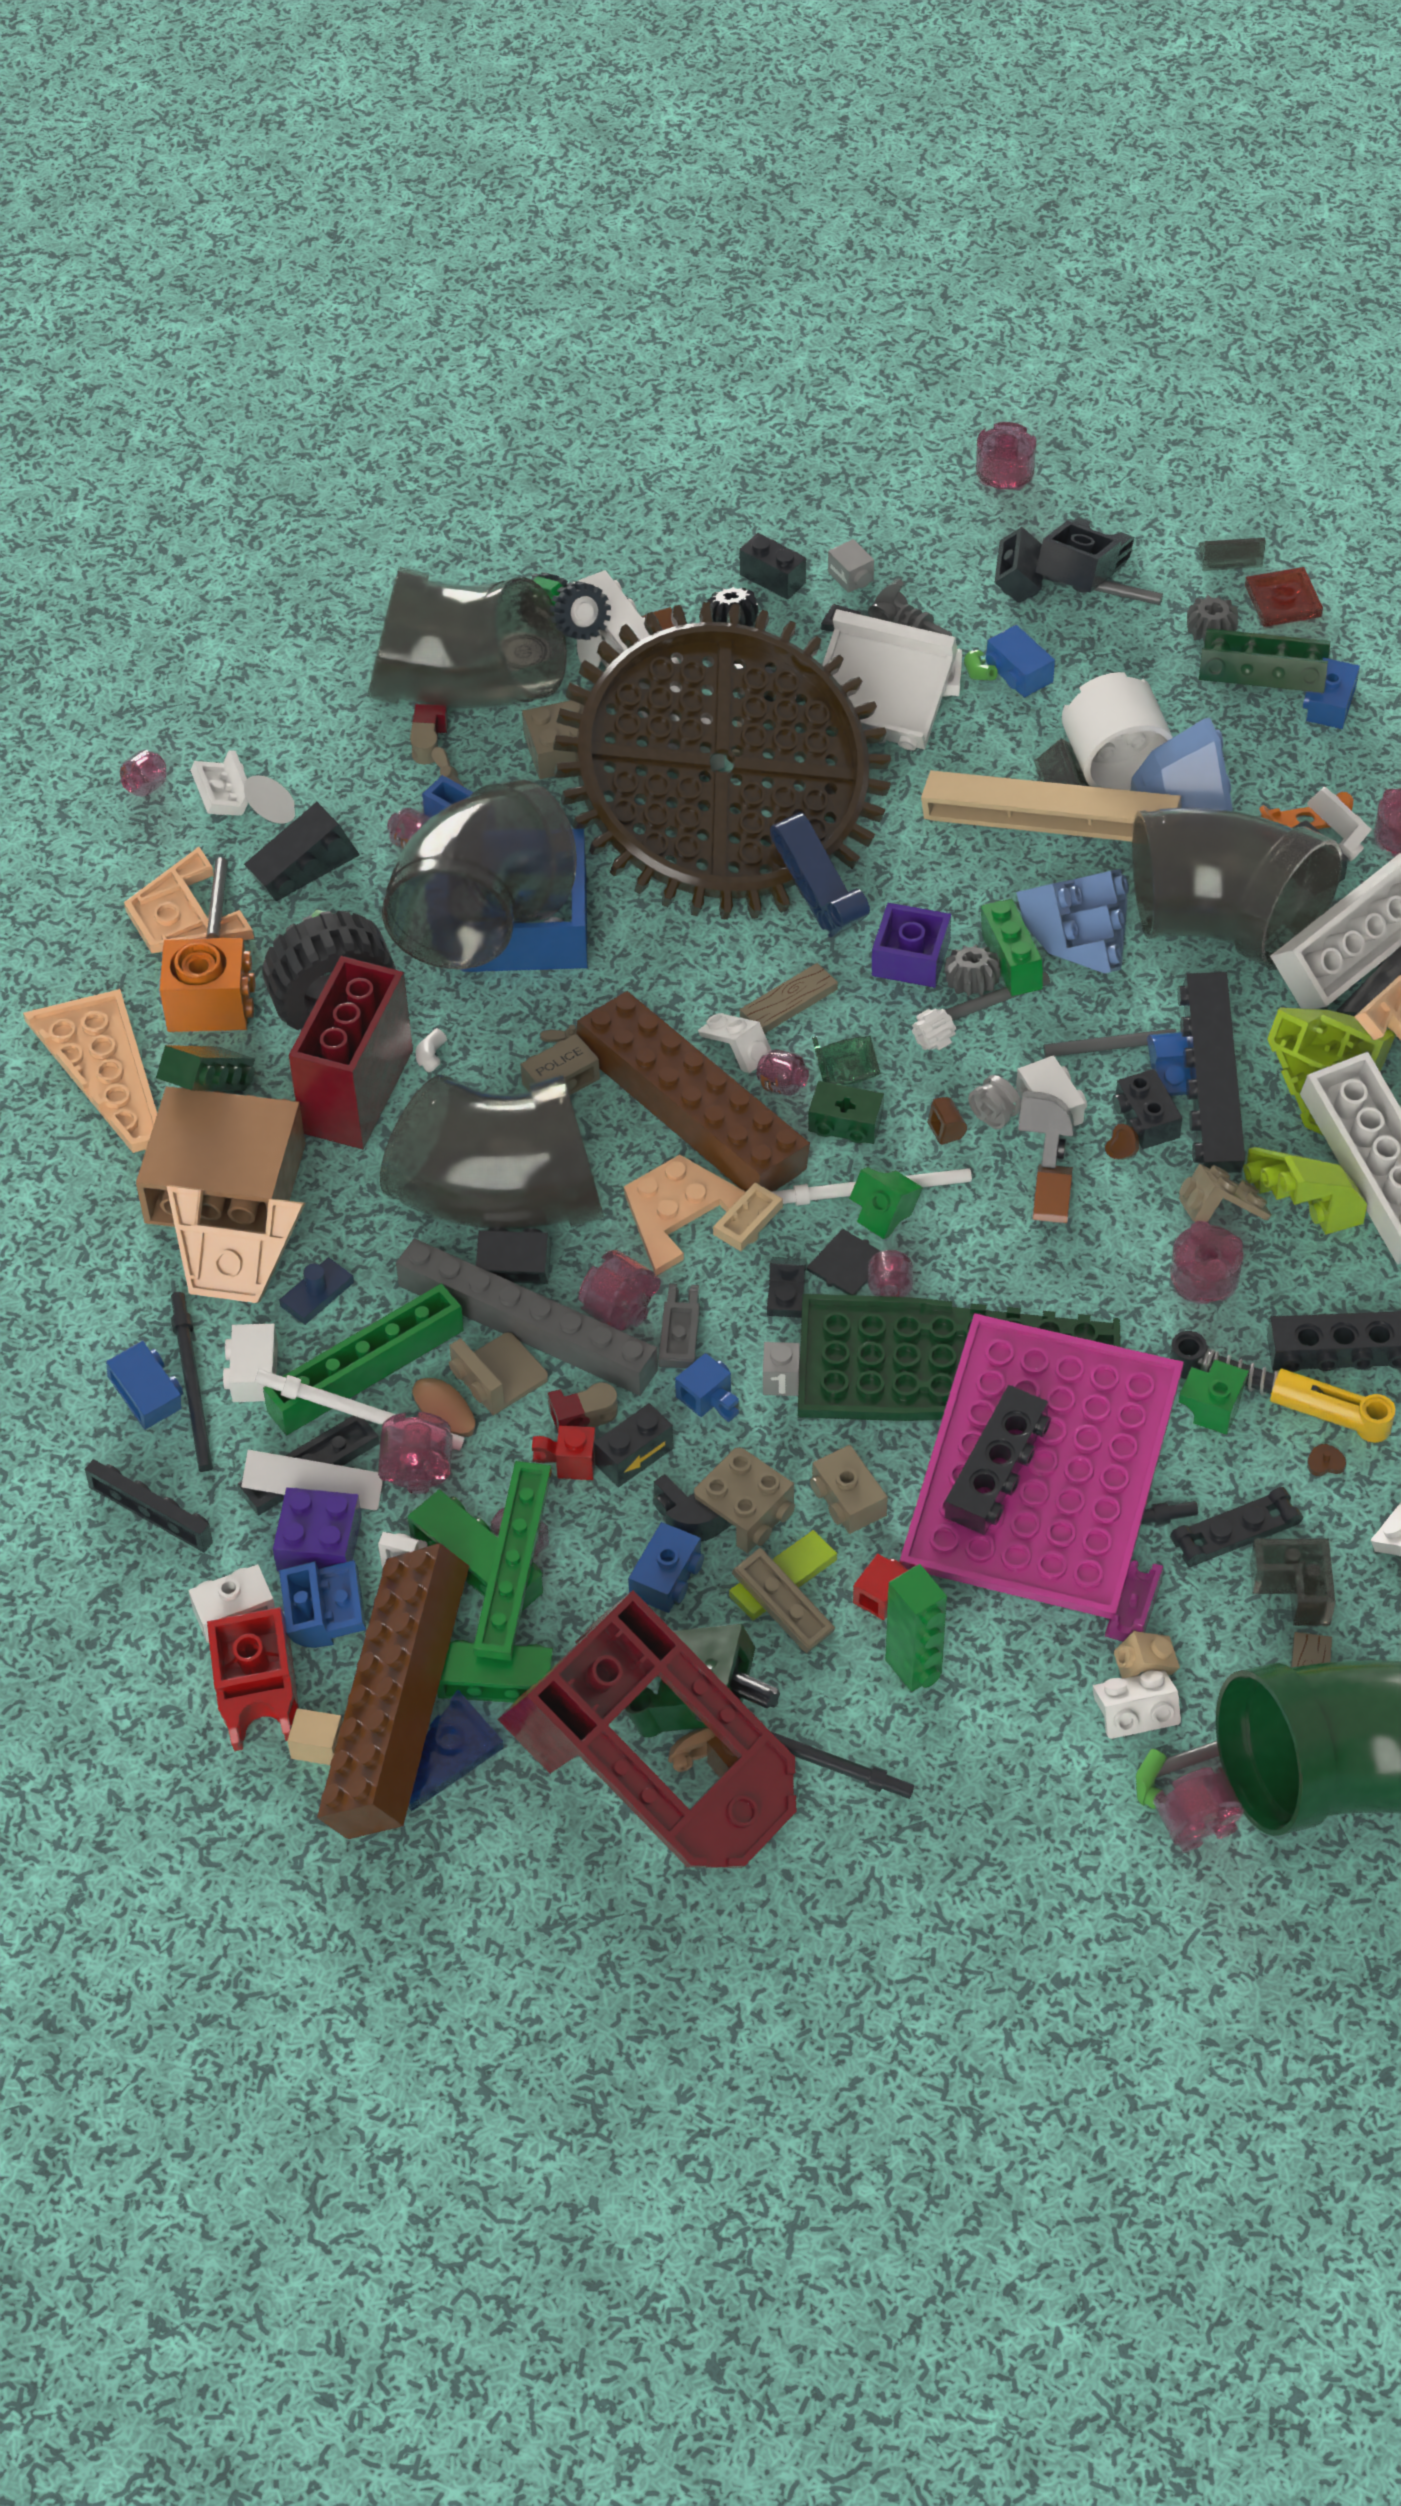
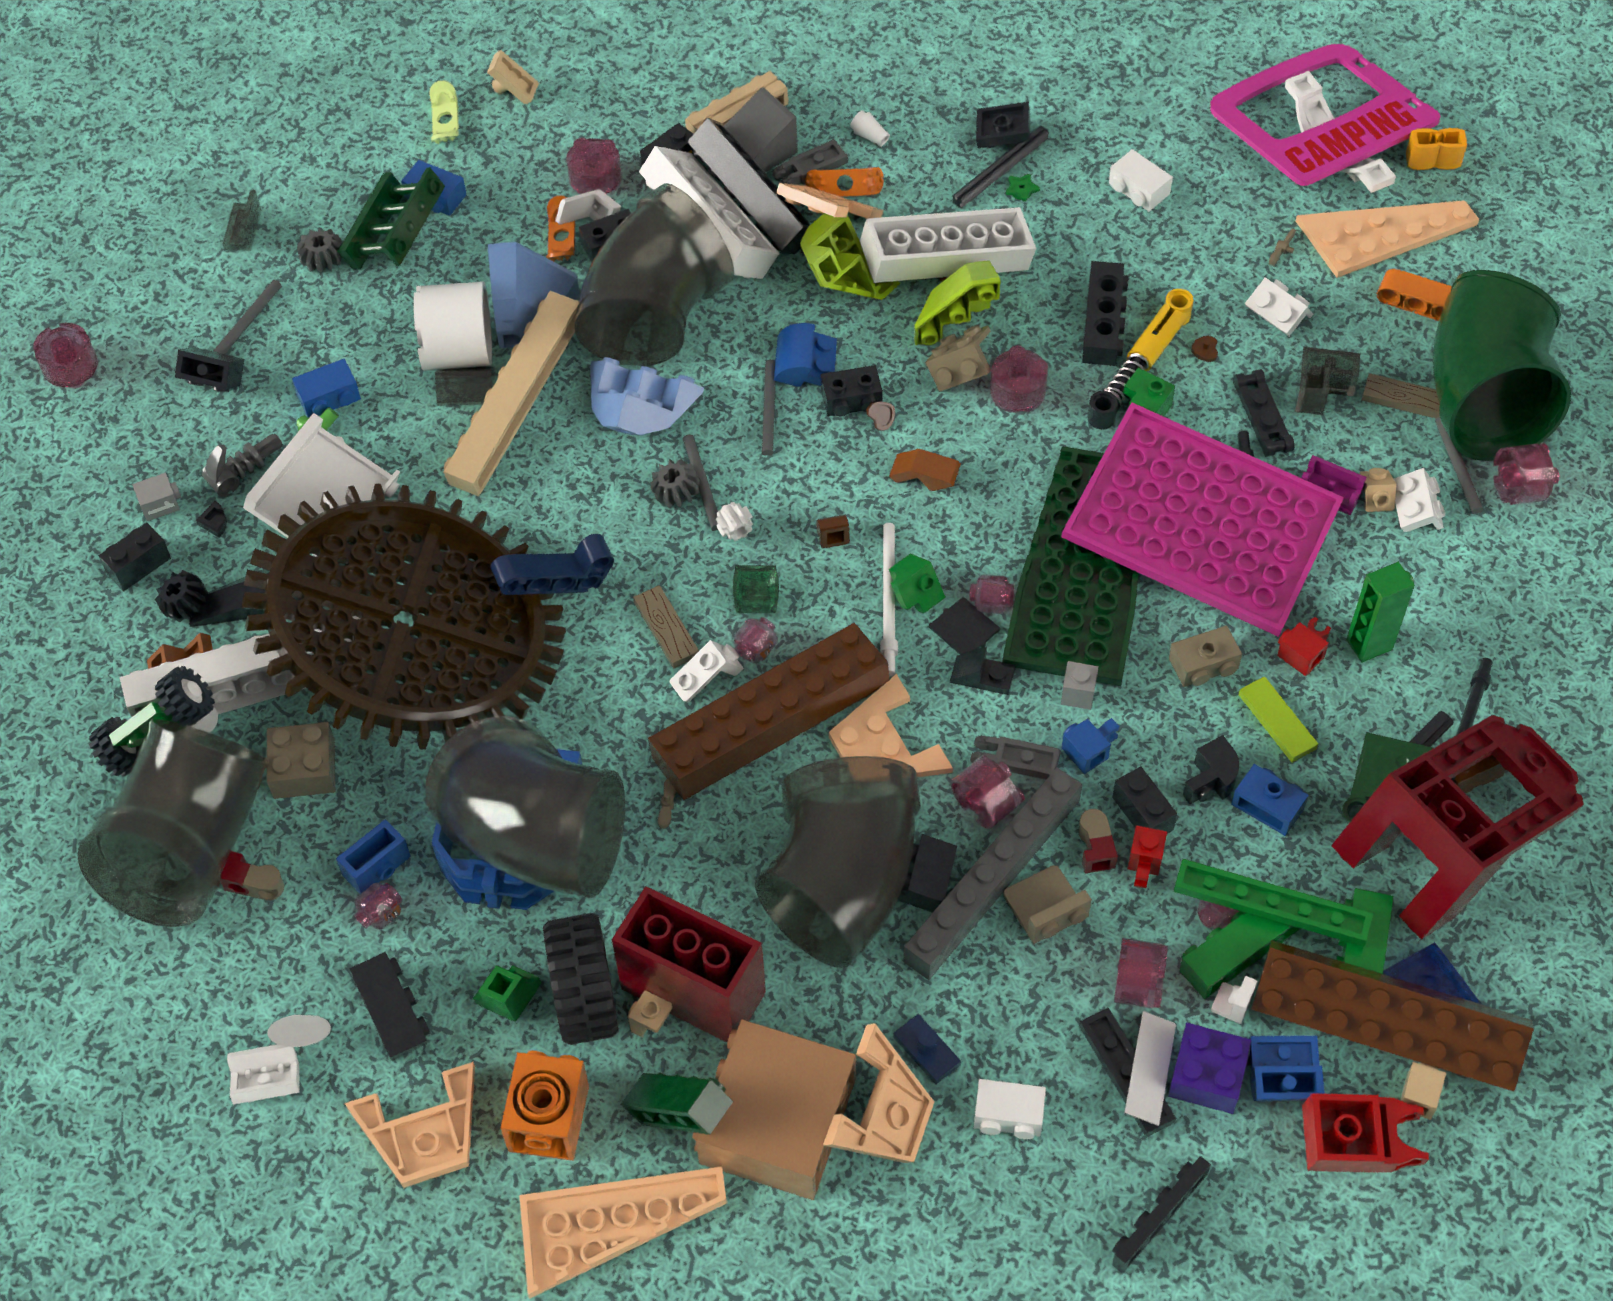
camera: 80 degrees left, 5 degrees up
(143, 771) = (221, 1150): clear pink head -> none
(144, 1384) = (1026, 1205): blue brick -> none
(182, 1327) = (949, 1171): black bar -> none
(217, 898) = (425, 1091): dark grey bar -> none
(231, 1596) = (1276, 1149): white brick -> none
(292, 1388) = (1076, 1055): white bar -> none
(369, 1355) = (1027, 1009): green brick -> none
(441, 759) = (308, 865): dark tan piece -> none
(446, 1402) = (1077, 953): medium nougat arm -> none
(565, 1058) = (715, 813): dark tan brick -> none
(747, 1496) = (1212, 725): dark tan bracket -> none
(748, 1217) = (921, 683): tan tile -> none
(783, 1600) = (1309, 718): dark tan tile -> none
(845, 1112) = (811, 599): dark green brick -> none
(911, 944) = (640, 519): dark purple brick -> none
(995, 1101) = (826, 491): light grey wheel -> none
(1014, 1411) = (1195, 538): black brick -> none
(1017, 954) = (646, 449): green brick -> none
(1050, 1116) = (869, 453): brick -> none
(1051, 1078) = (823, 453): white brick -> none
(1082, 555) = (220, 318): black brick -> none
(1146, 1777) = (1493, 508): bright green arm -> none
(1212, 1071) = (840, 332): black brick -> none
(1283, 596) = (308, 199): clear red plate -> none

